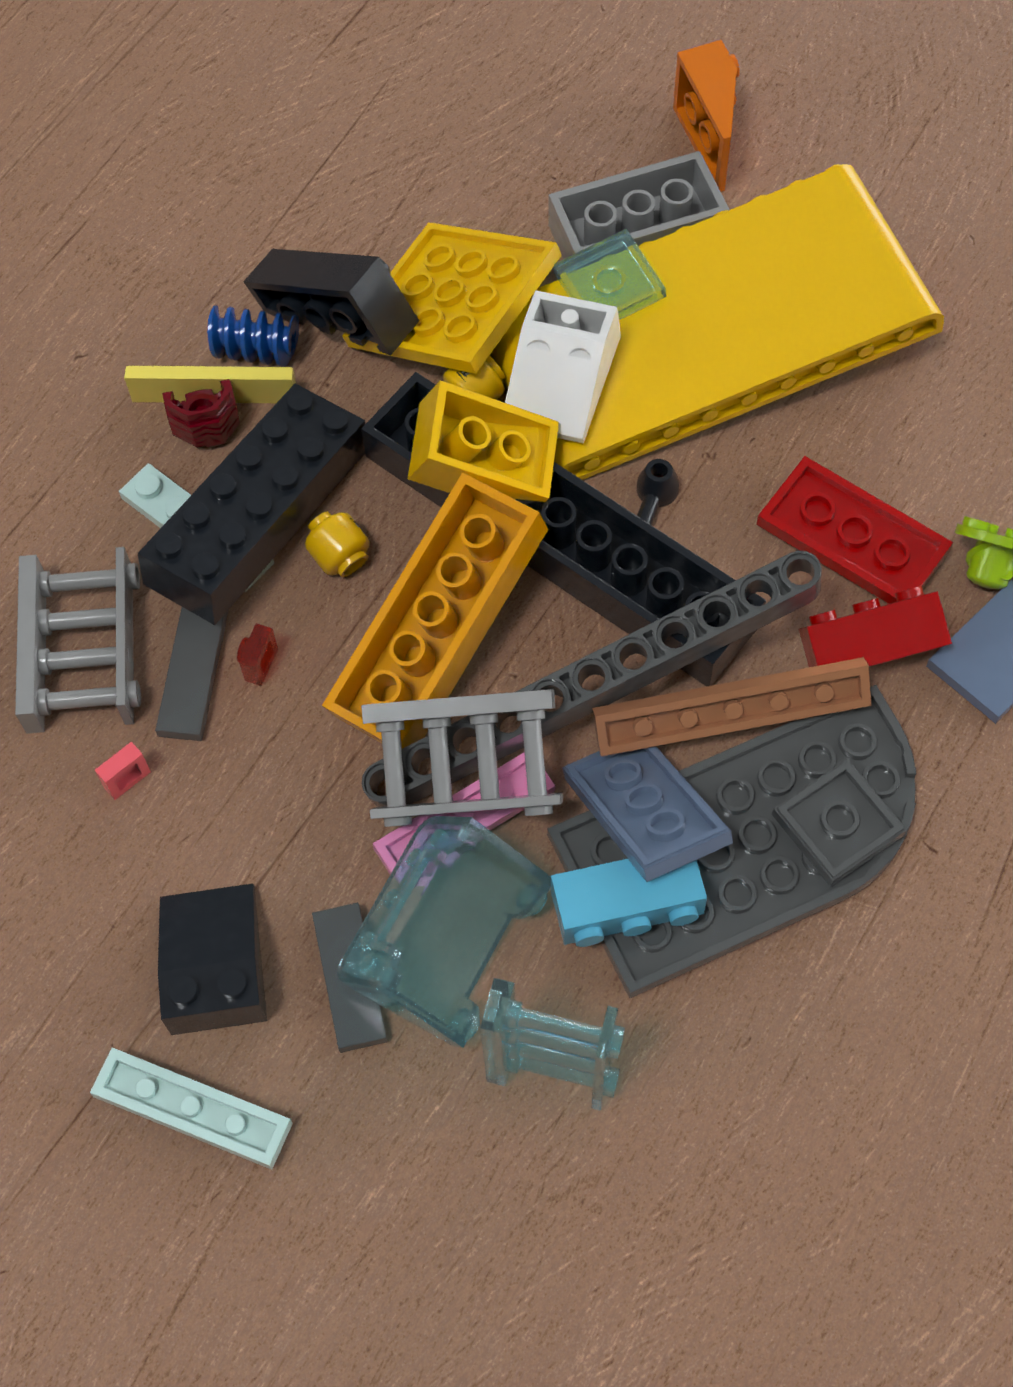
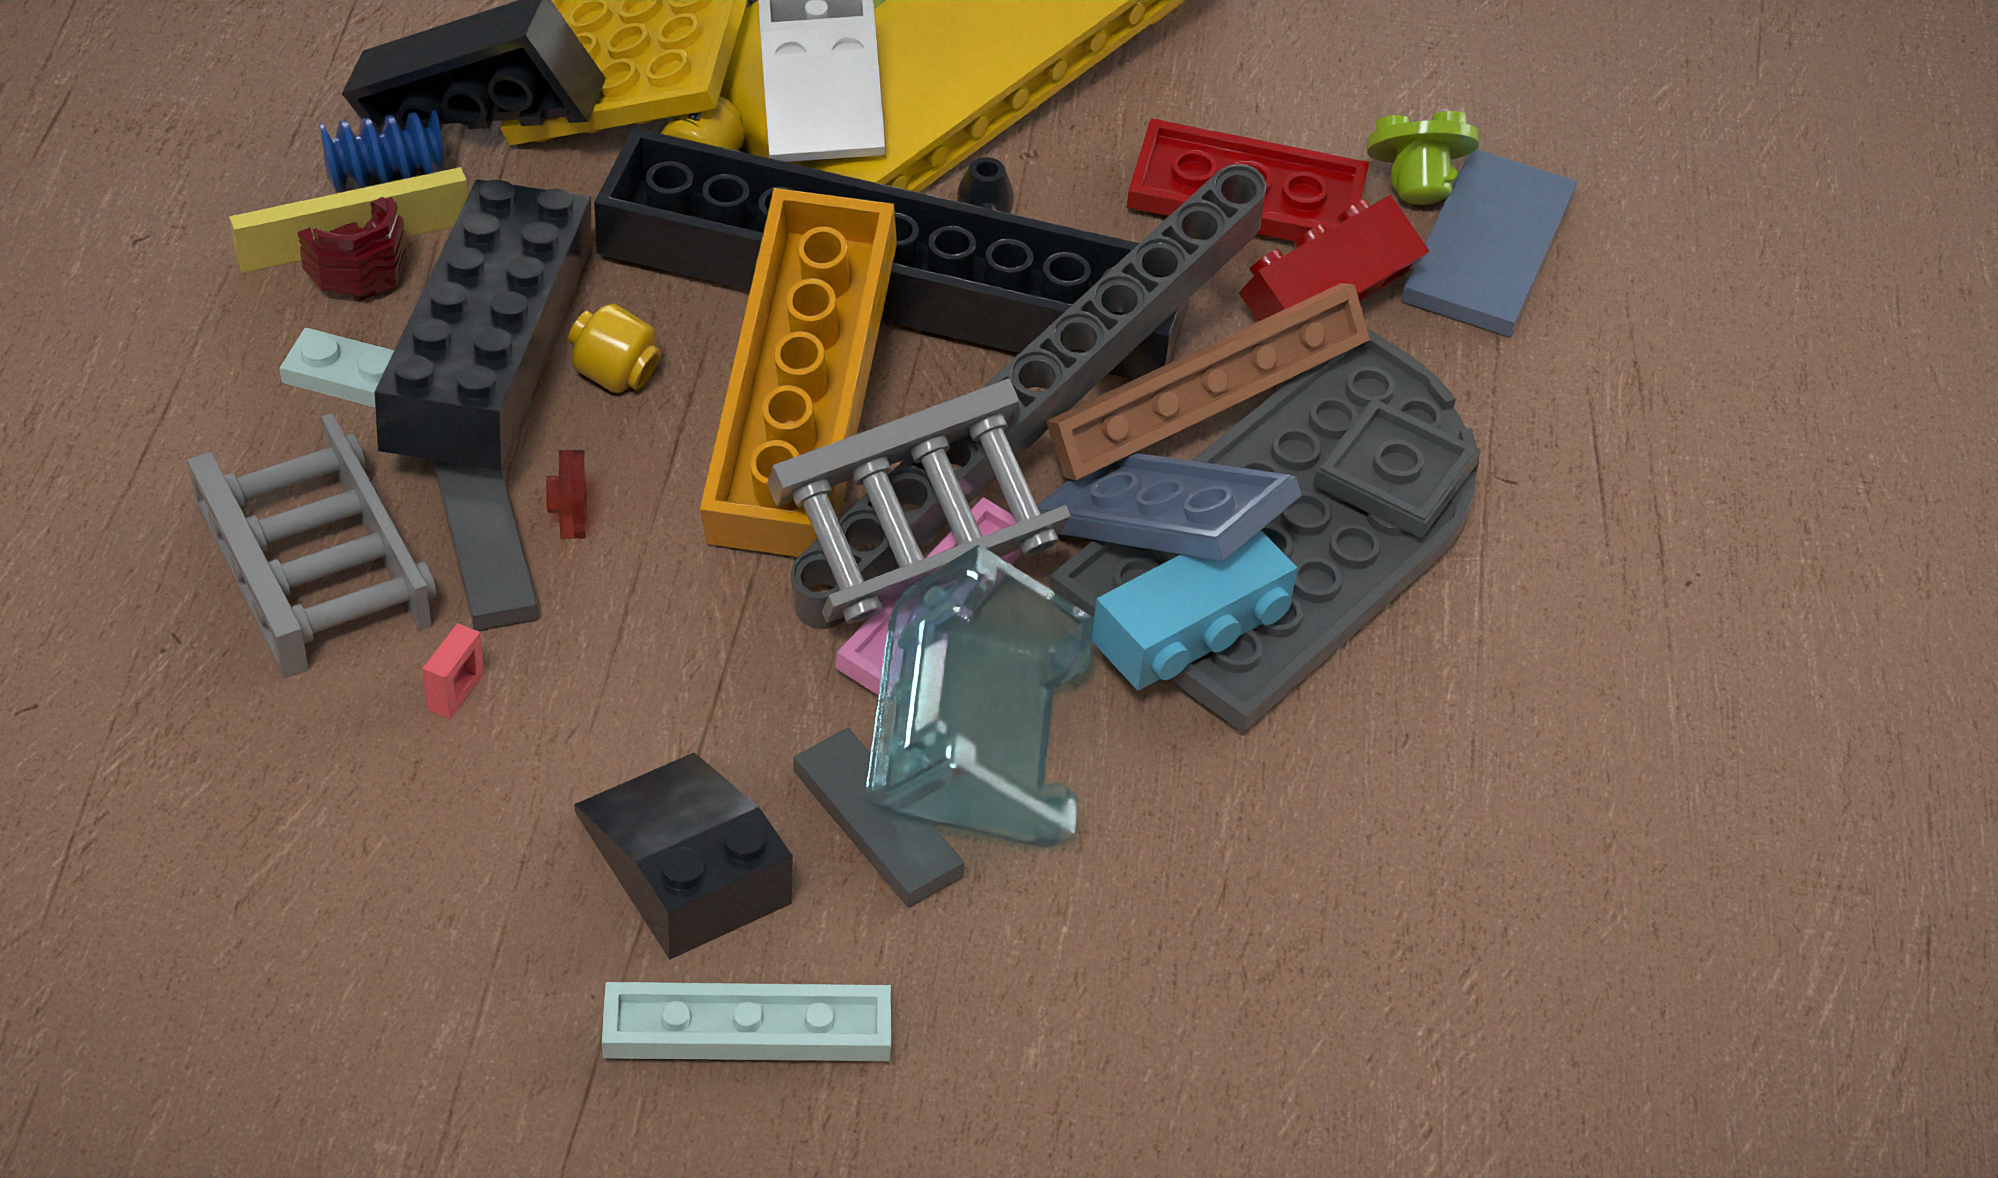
camera: 30 degrees left, 15 degrees down
(484, 440) = (736, 156): yellow slope -> none
(548, 1044) = (1144, 747): clear light blue fence -> none

